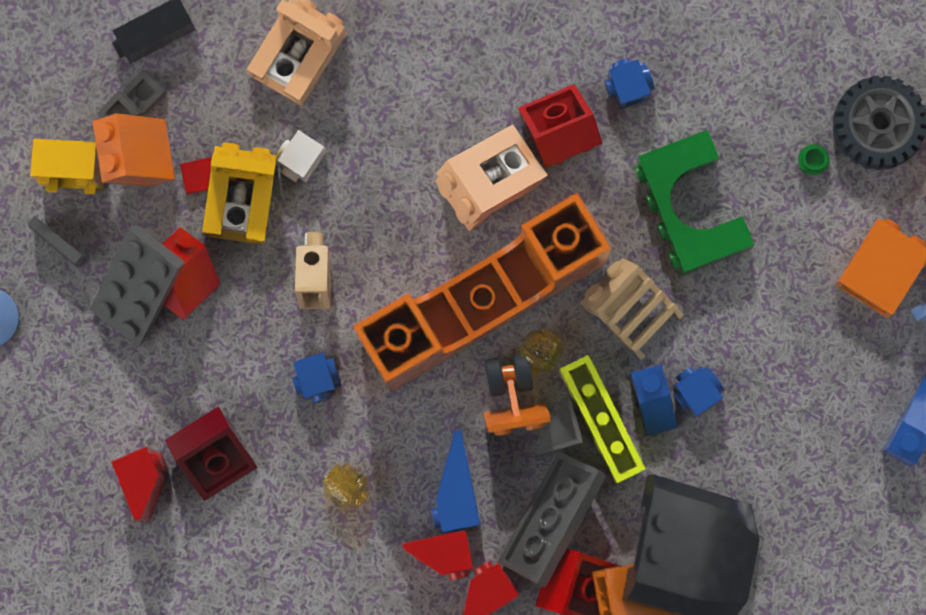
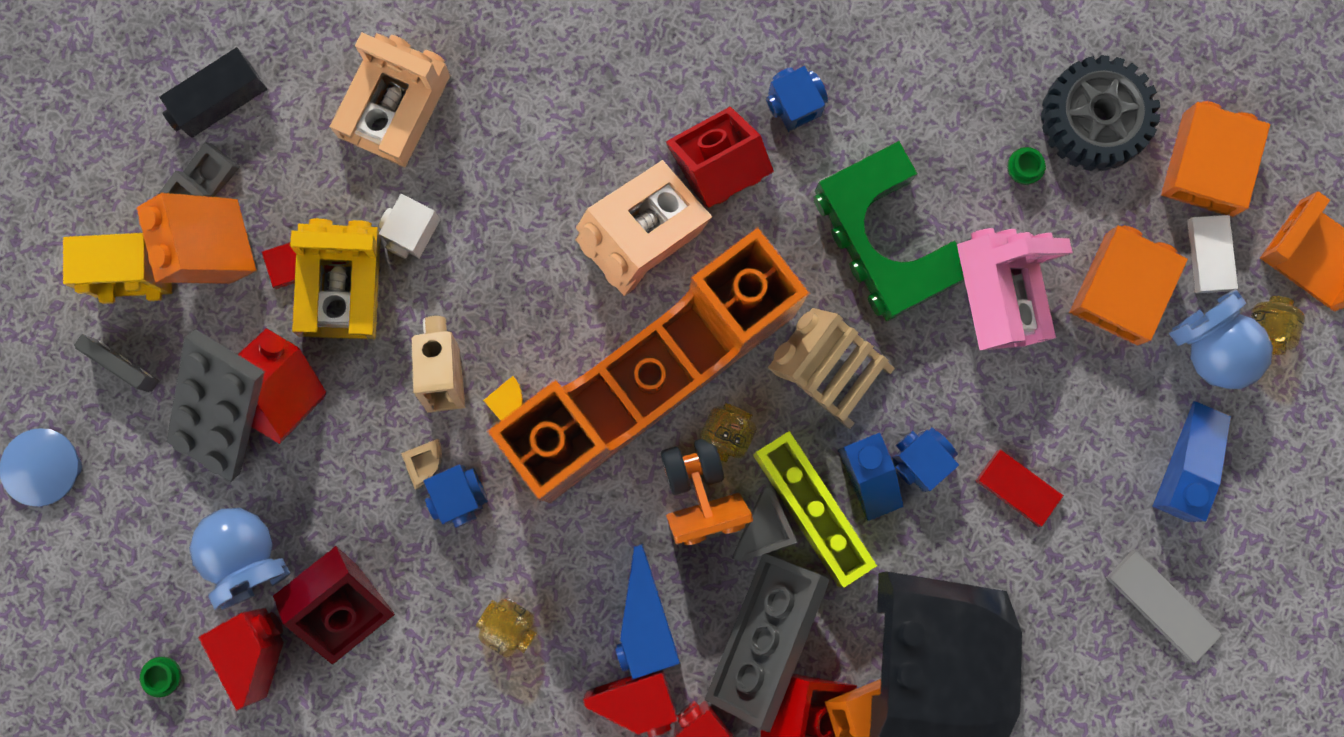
camera: 20 degrees left, 0 degrees up
(69, 494) = (160, 676): none -> green plate
(139, 403) = (234, 553): none -> medium blue tile
(292, 348) = (423, 462): none -> tan tile
(364, 304) = (505, 398): none -> yellow tile
(773, 423) = (1019, 488): none -> red tile
(782, 258) = (1008, 286): none -> bright pink brick
(878, 531) = (1163, 606): none -> light grey tile

